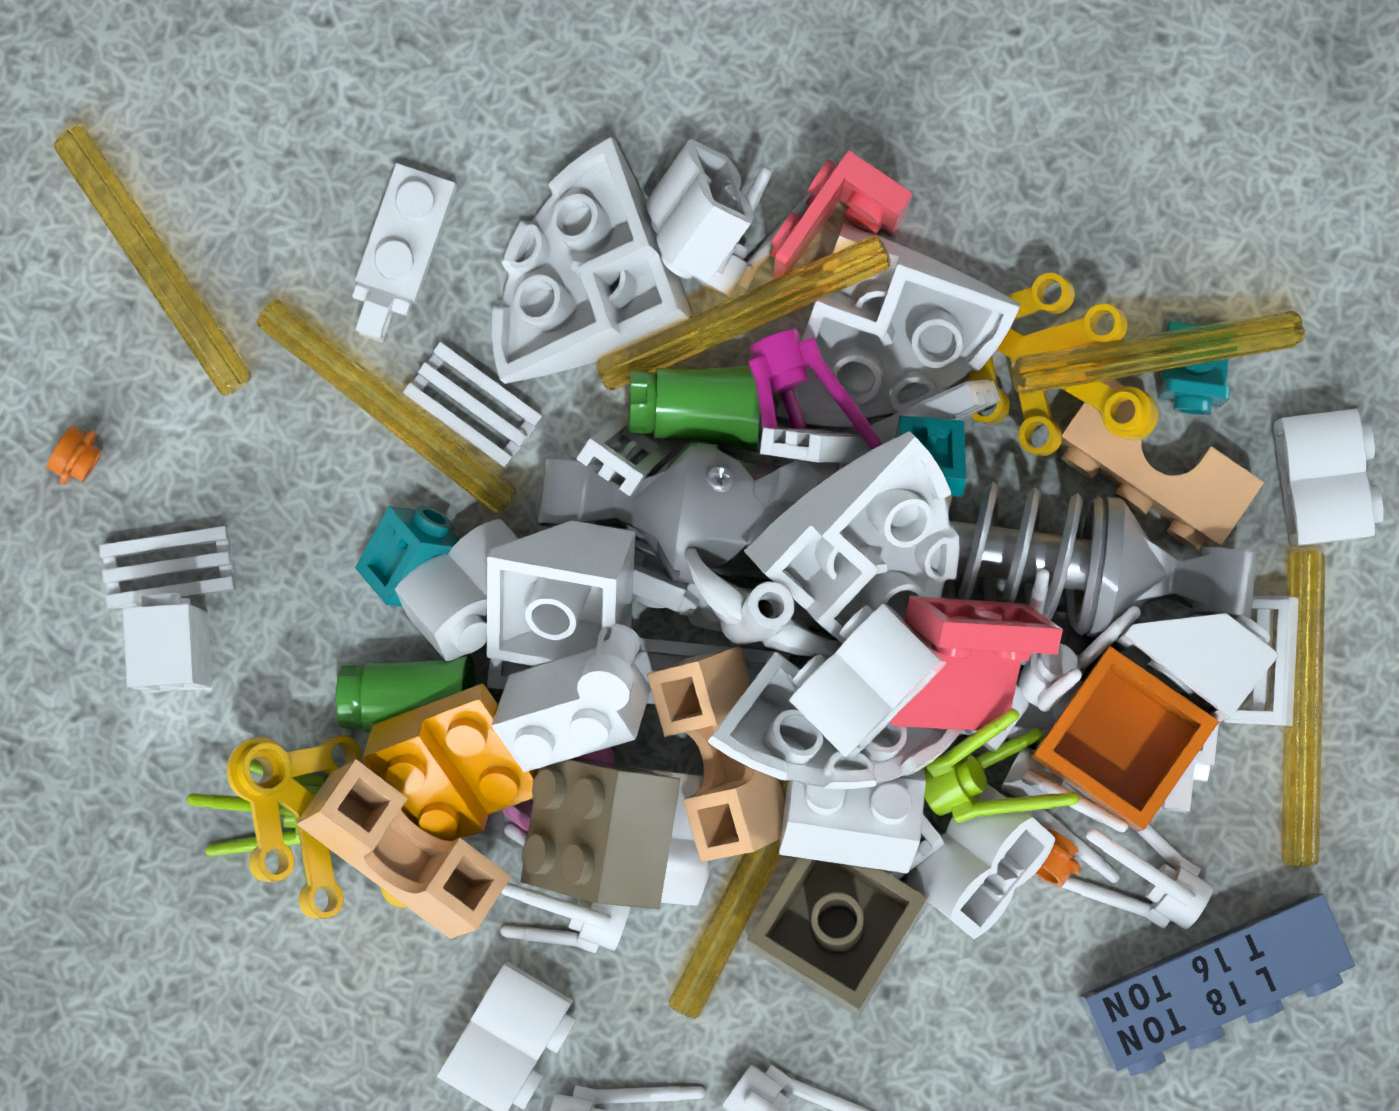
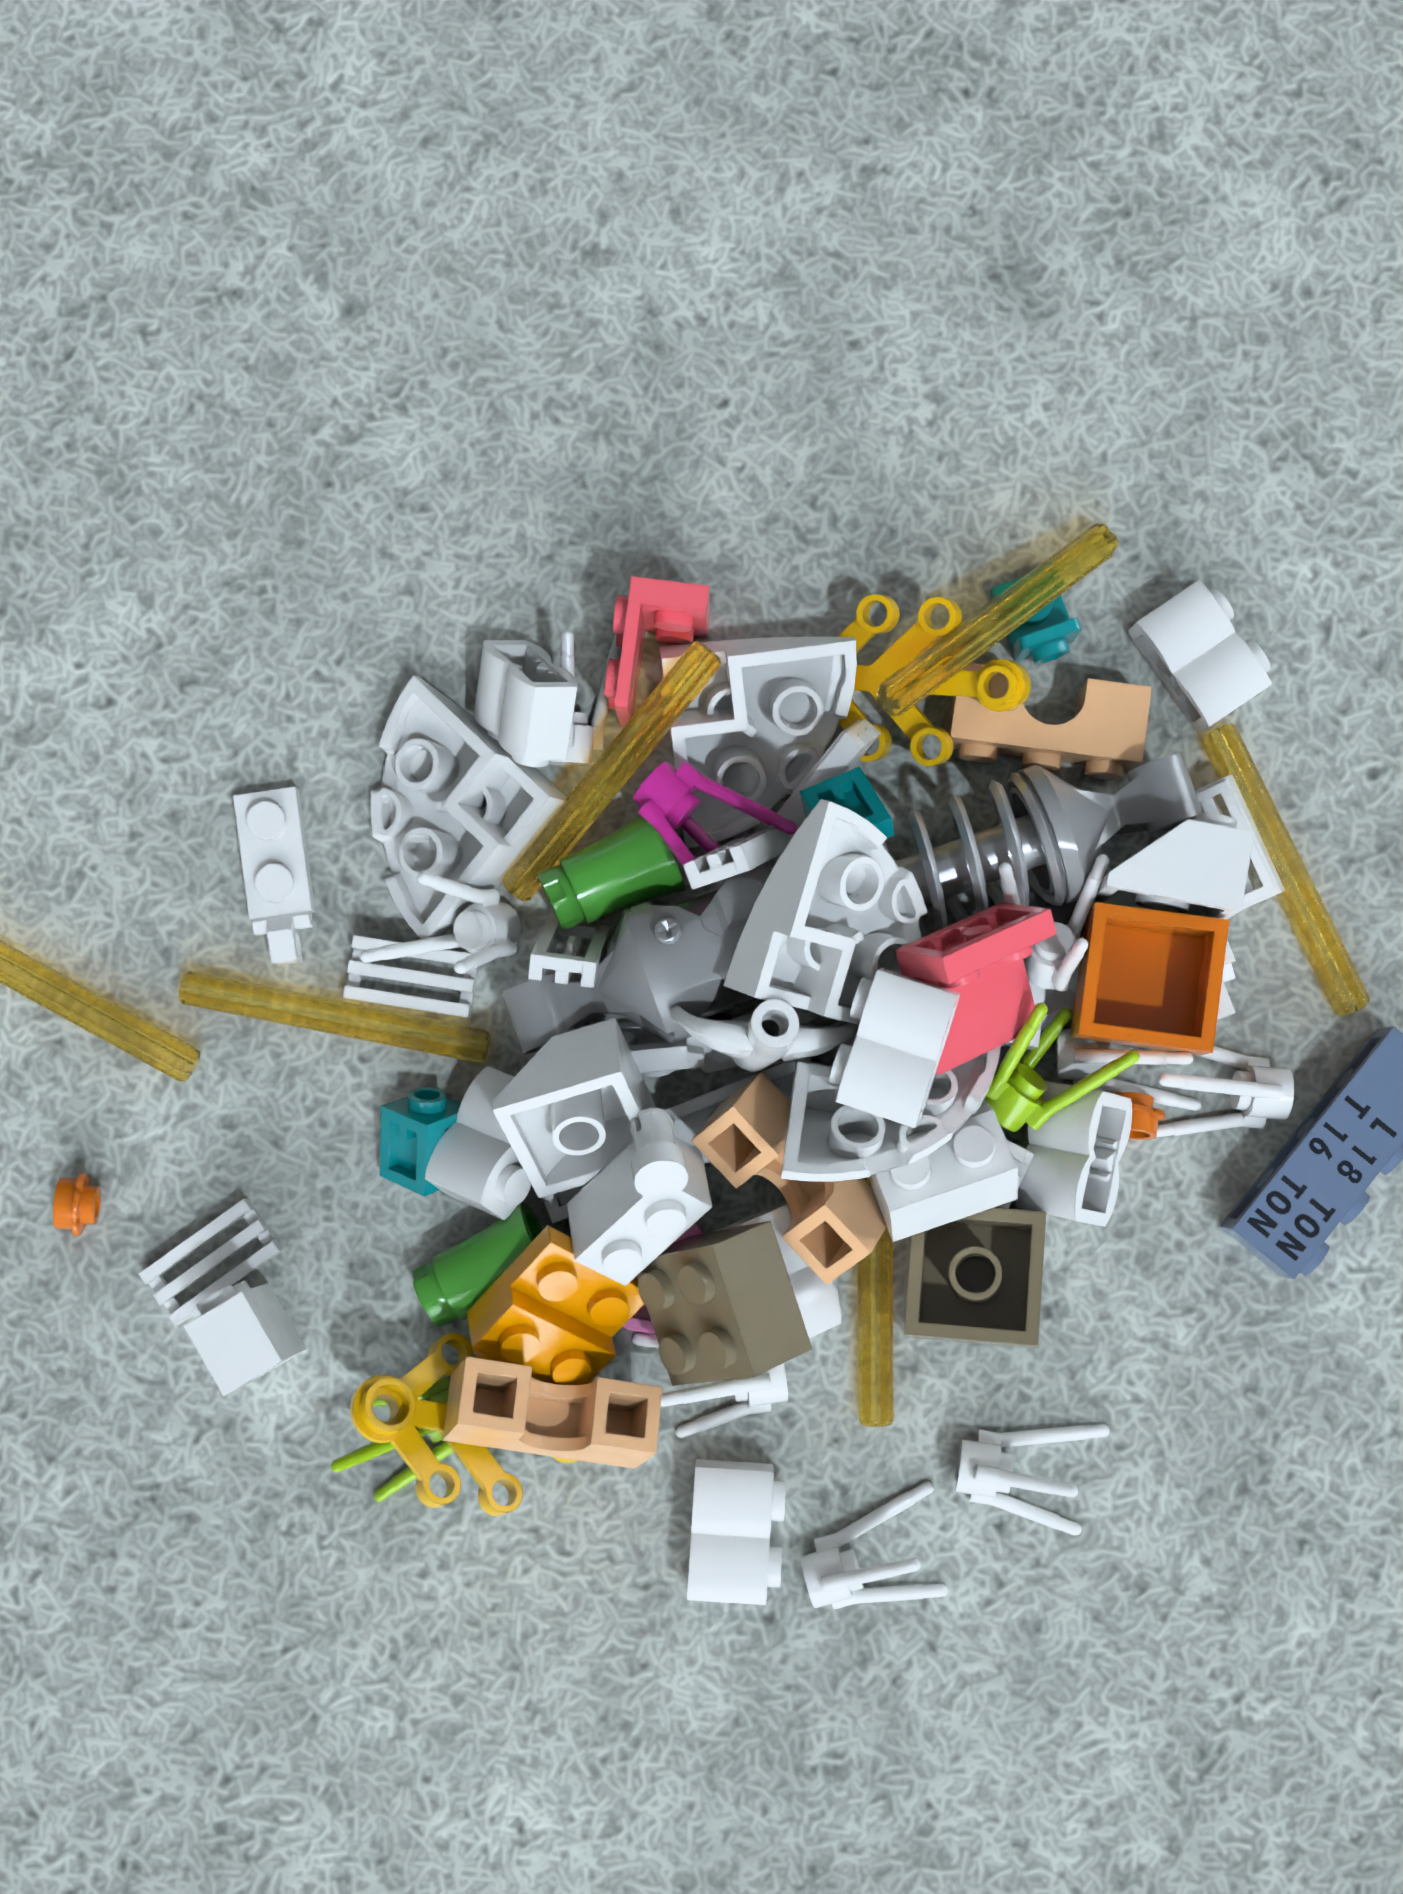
camera: 20 degrees left, 0 degrees up
(558, 395) = (484, 929): none -> white plant

